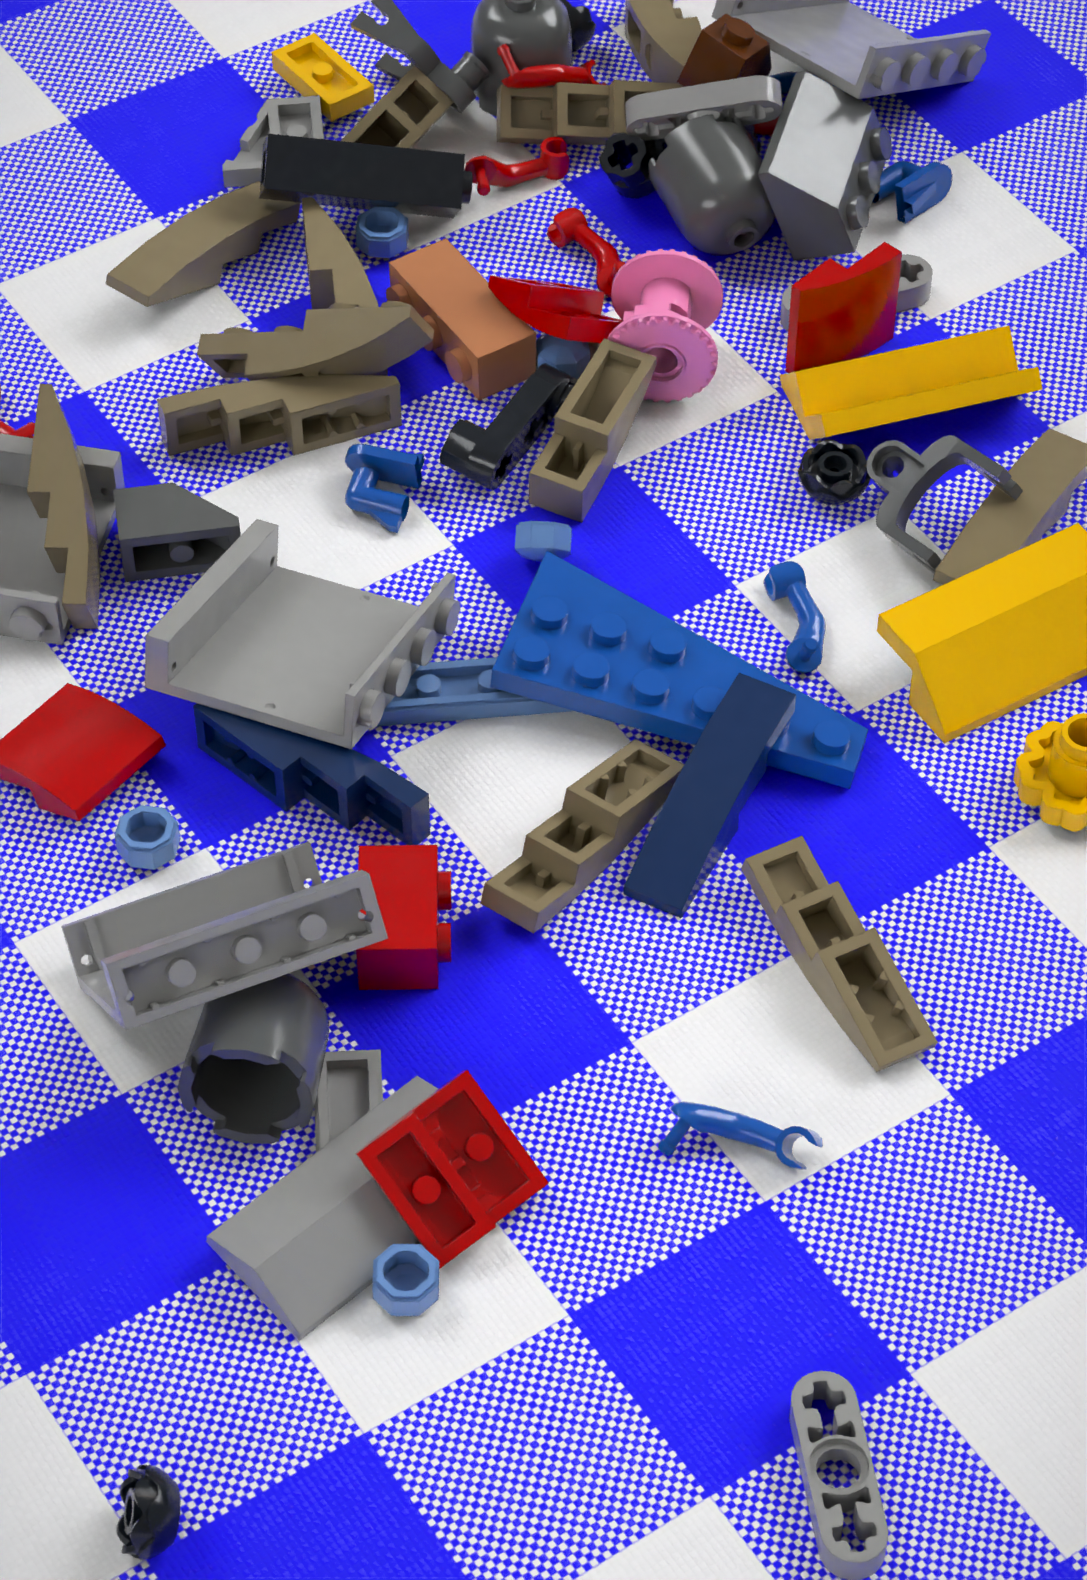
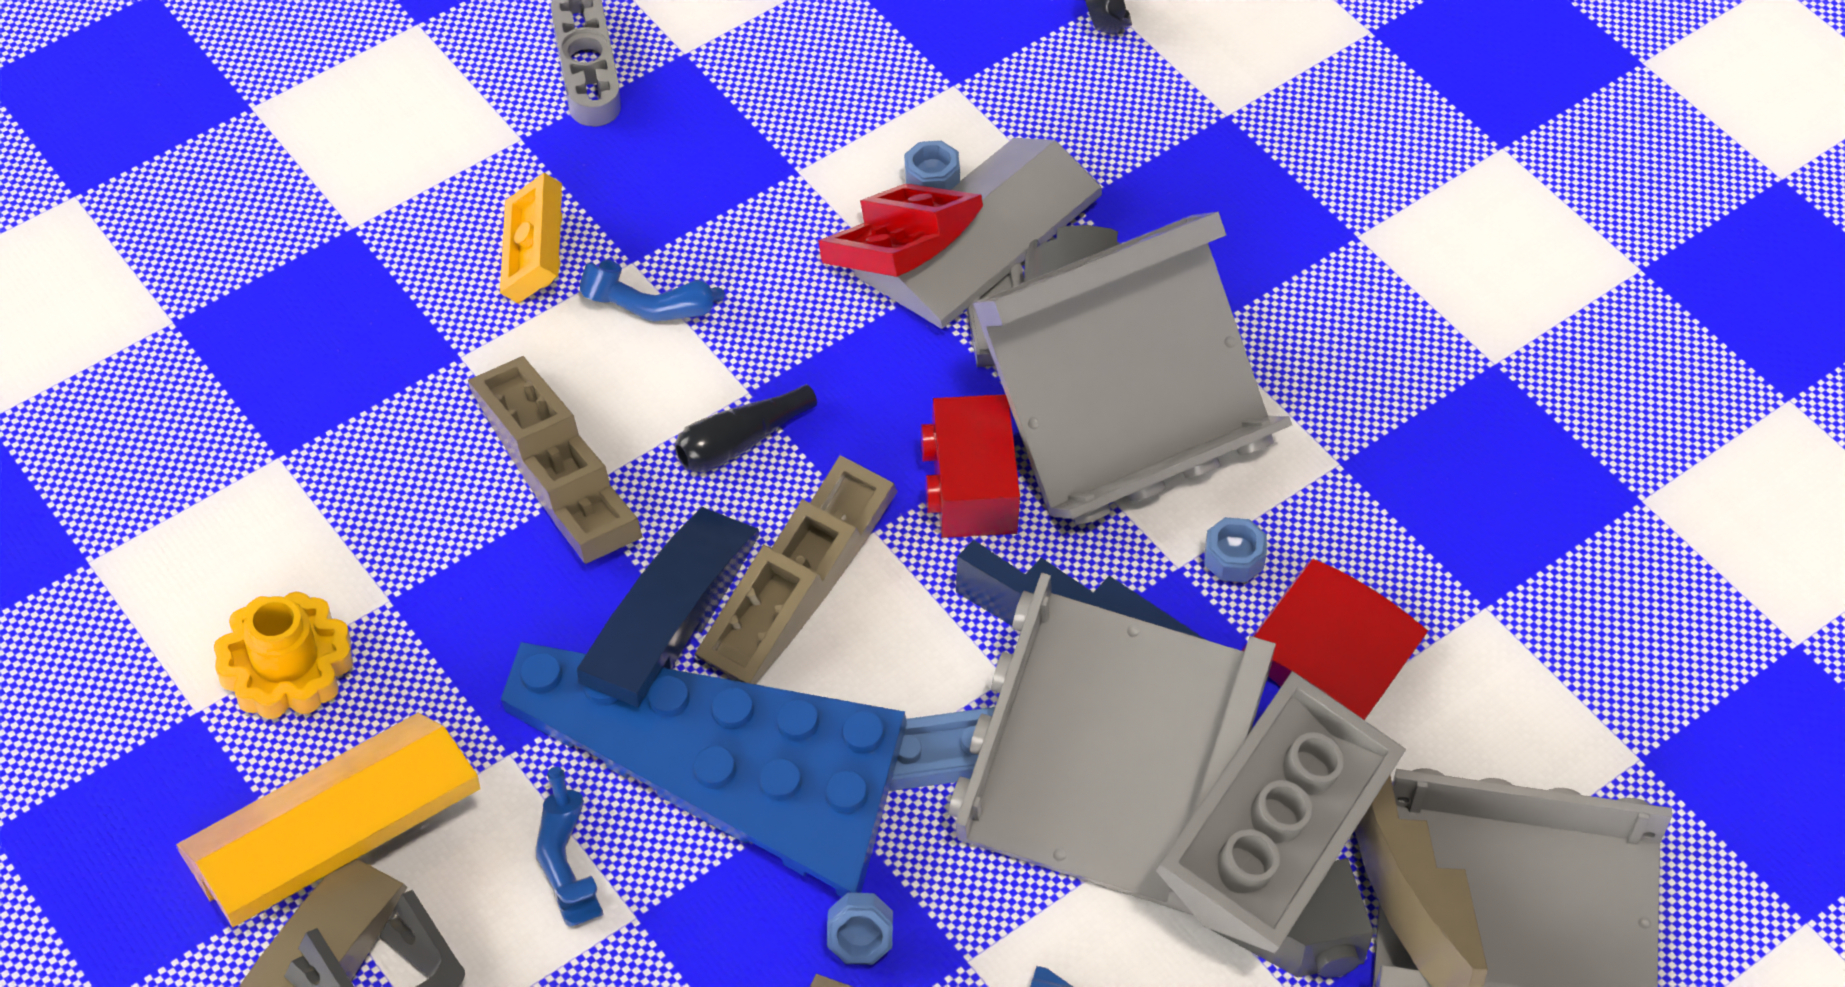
camera: 175 degrees right, 5 degrees up
(165, 548) = (1279, 815): none -> light grey slope
(649, 975) = (733, 431): none -> black piece
(882, 1195) = (531, 238): none -> yellow plate

